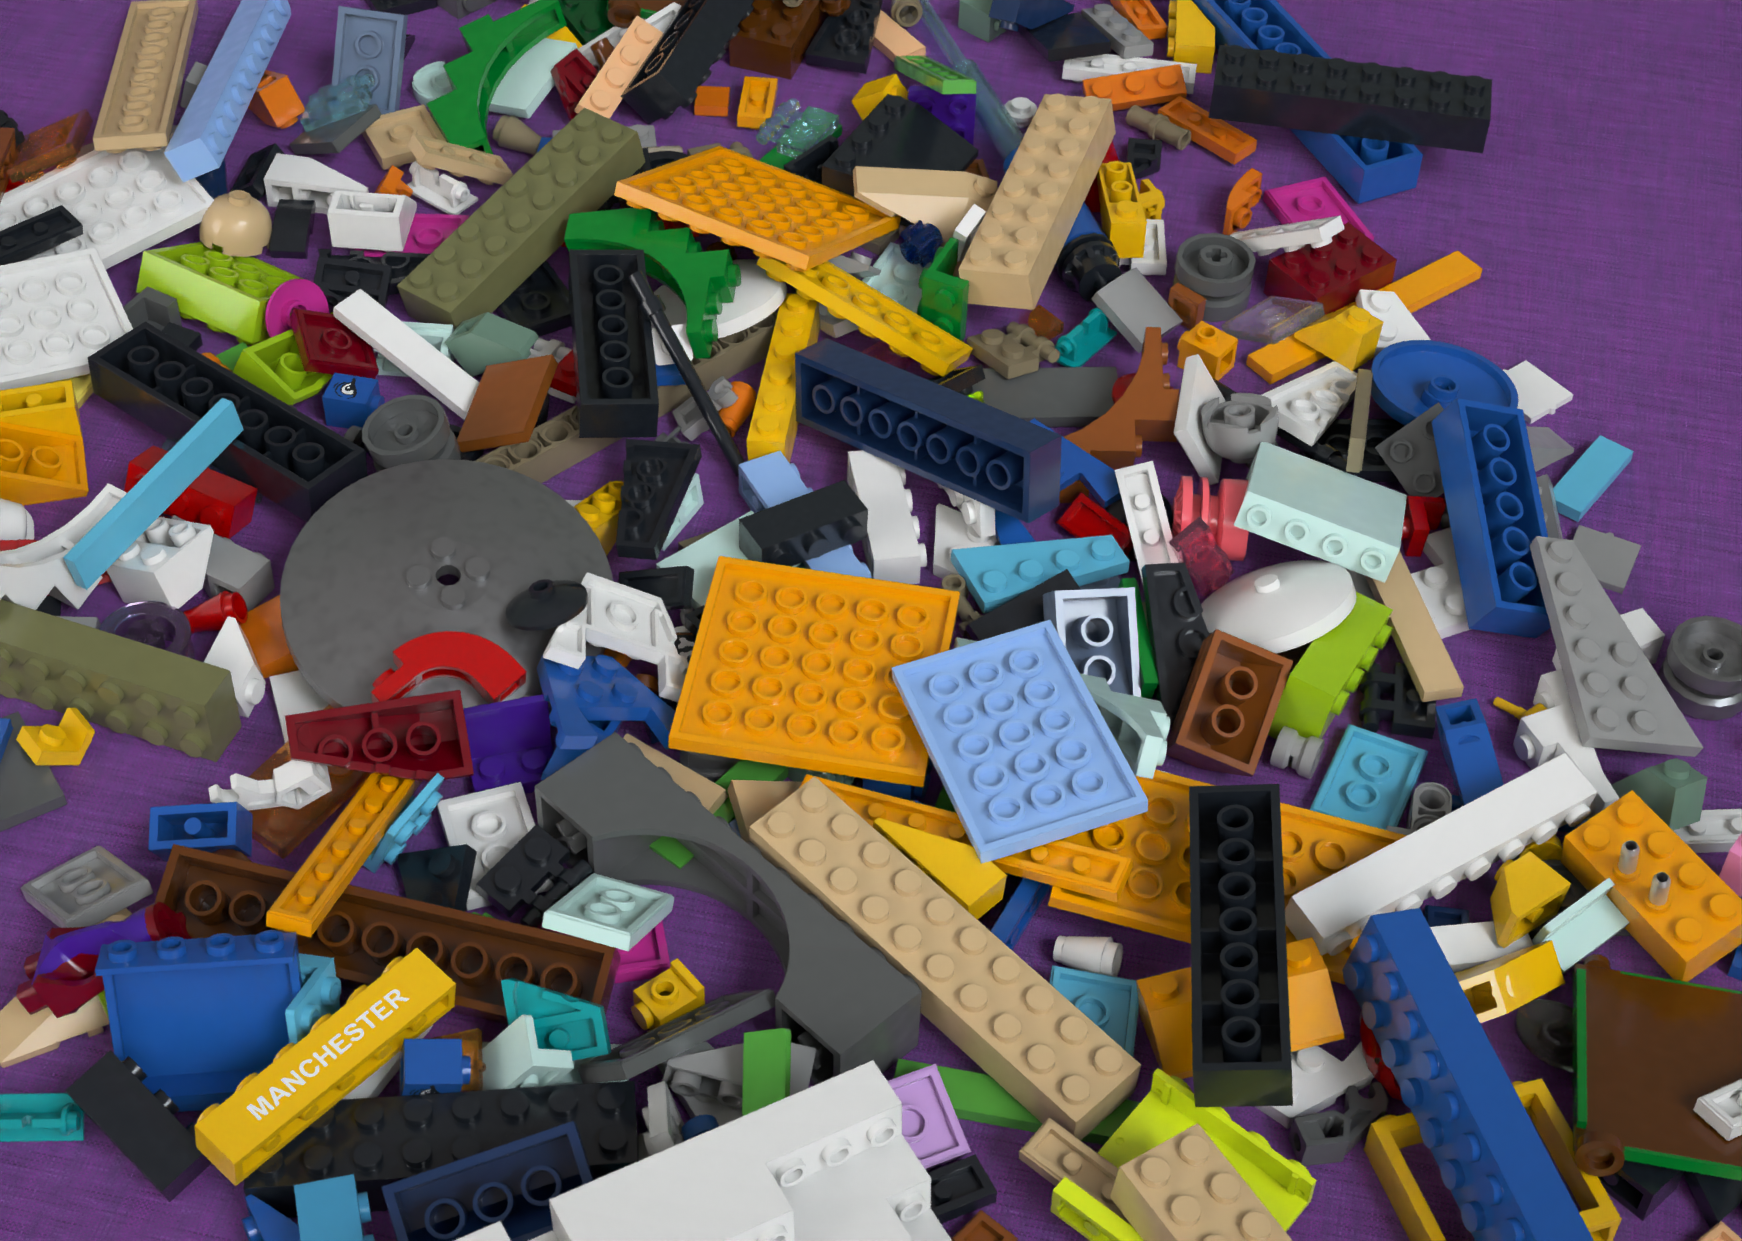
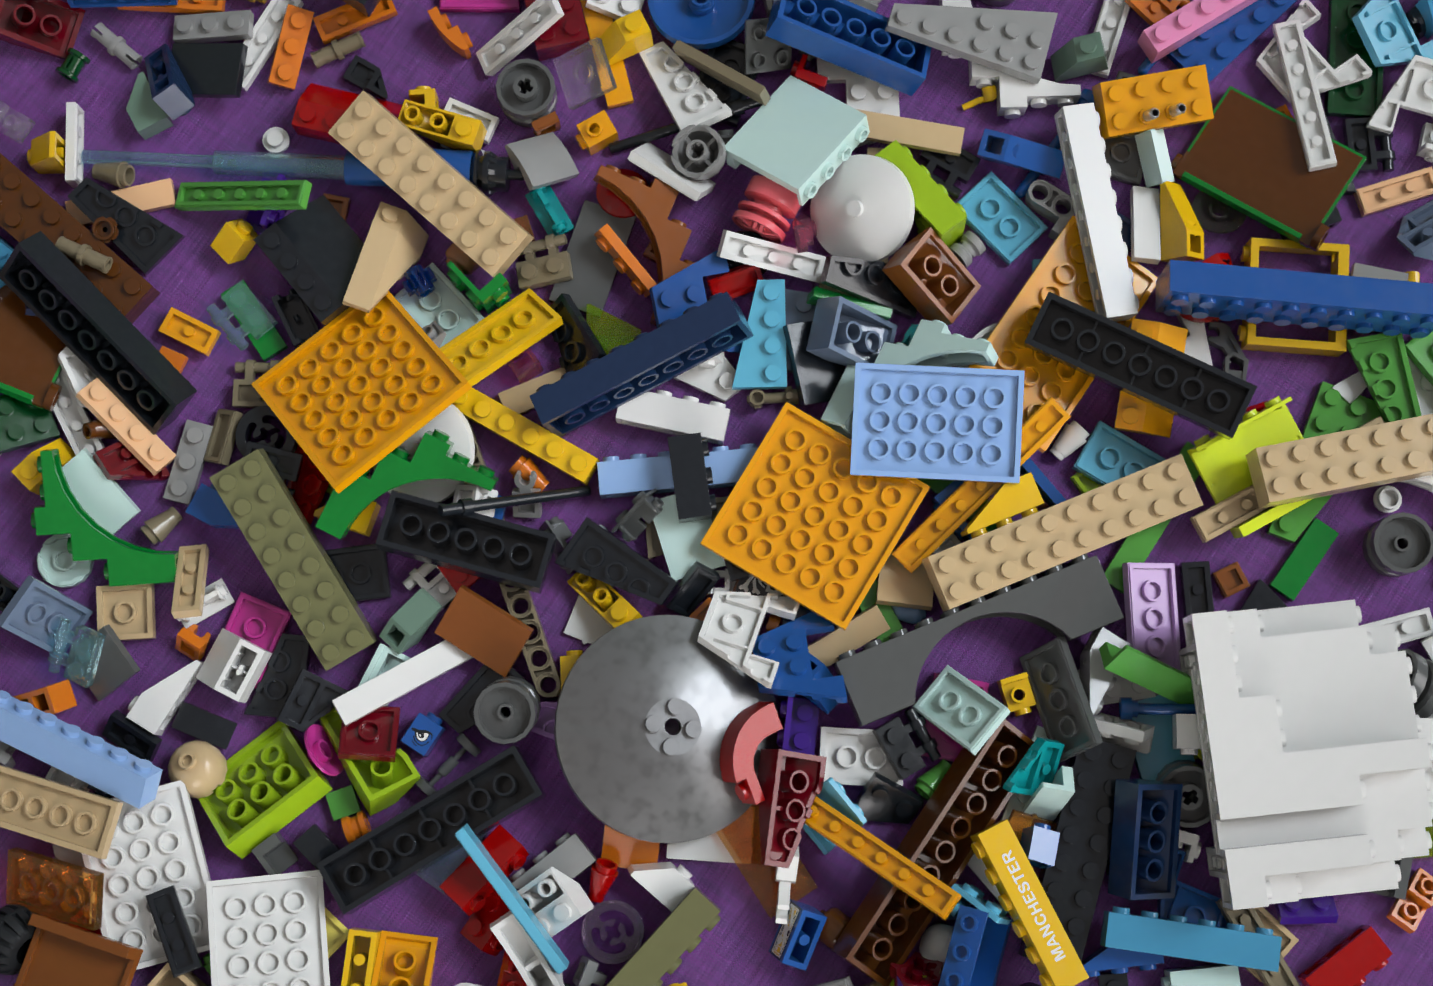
camera: 65 degrees left, 35 degrees up
(546, 605) = (736, 667): black dish -> none
(728, 503) = (644, 507): none -> dark grey hinge
(967, 229) = (437, 250): white plate -> none
(1071, 386) = (624, 260): none -> orange plate
(1525, 897) = (1133, 181): yellow slope -> none

